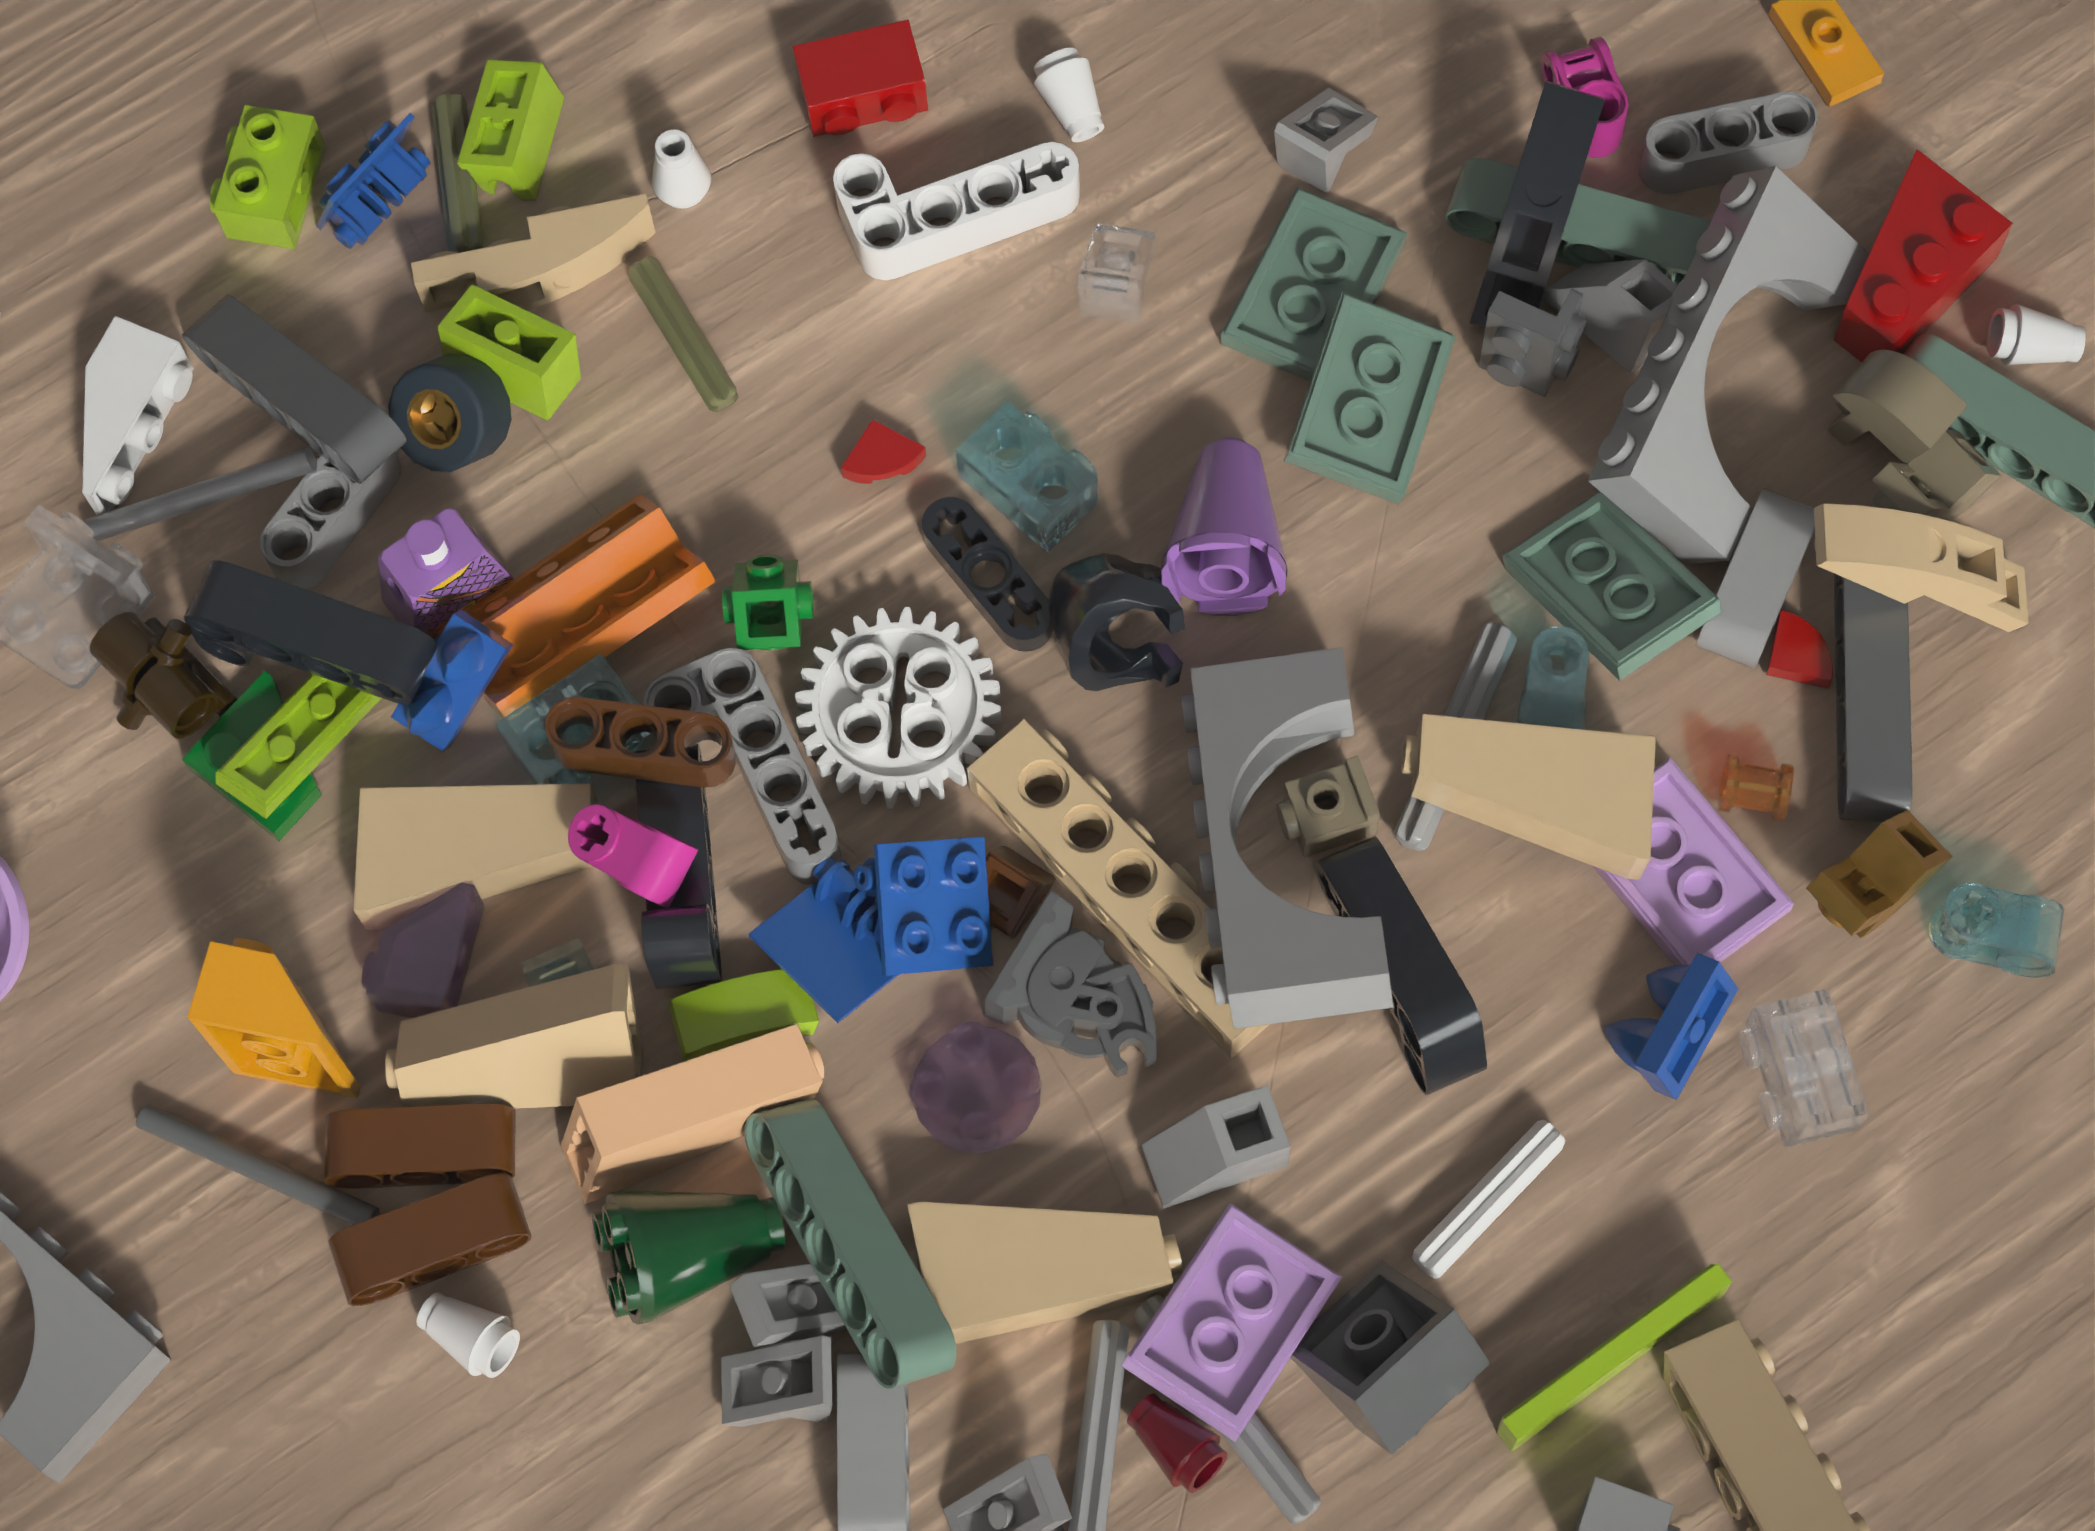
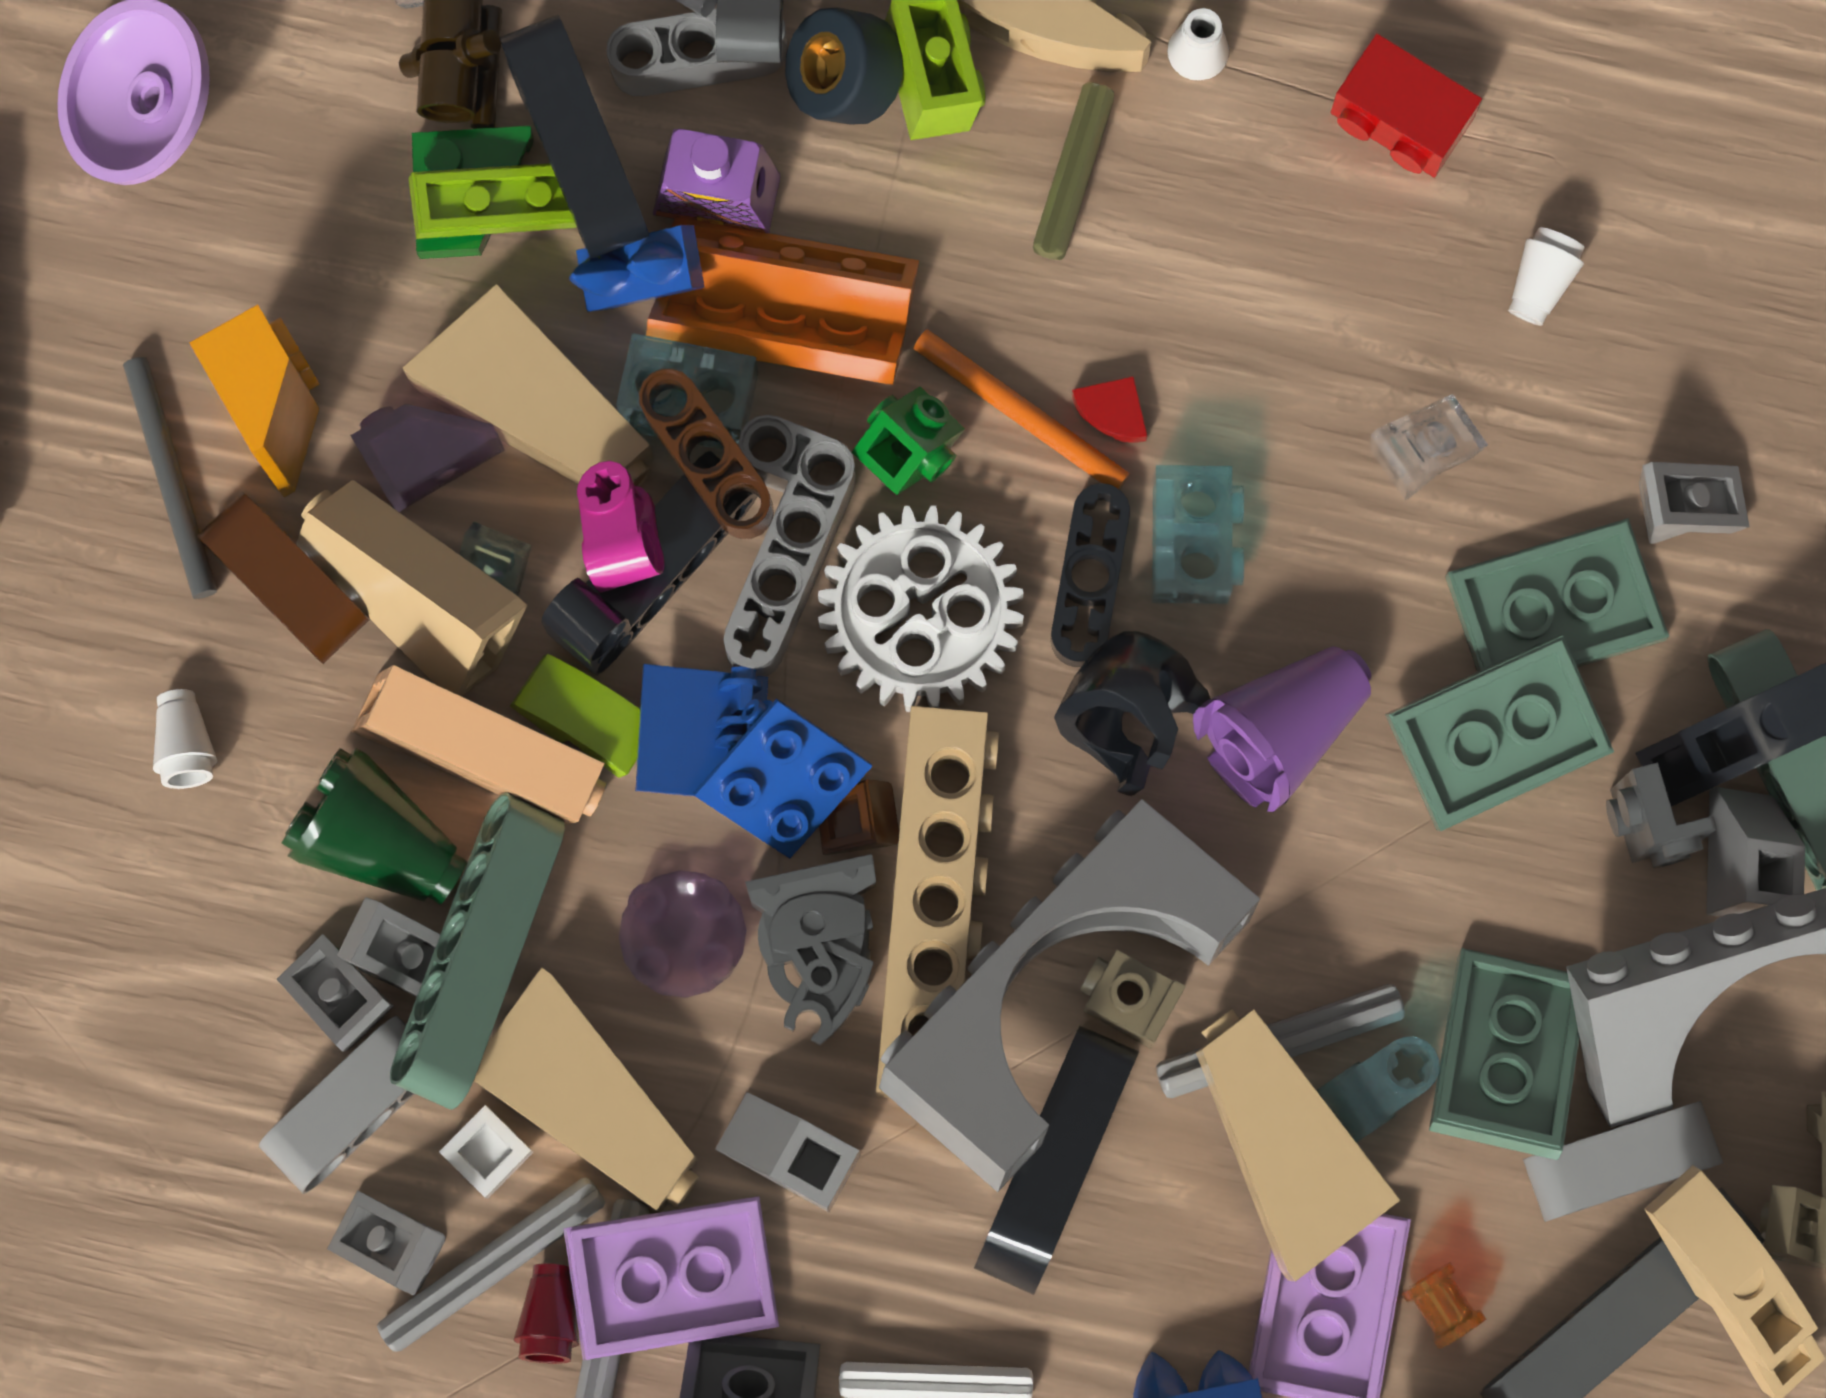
camera: 45 degrees right, 10 degrees up
(429, 1239) = (223, 649): reddish brown beam -> none
(817, 518) = (1020, 410): none -> orange bar
(956, 198) = (1375, 274): white beam -> none
(1006, 1379) = (486, 1151): none -> white plate
(1799, 652) = (1591, 1243): red tile -> none

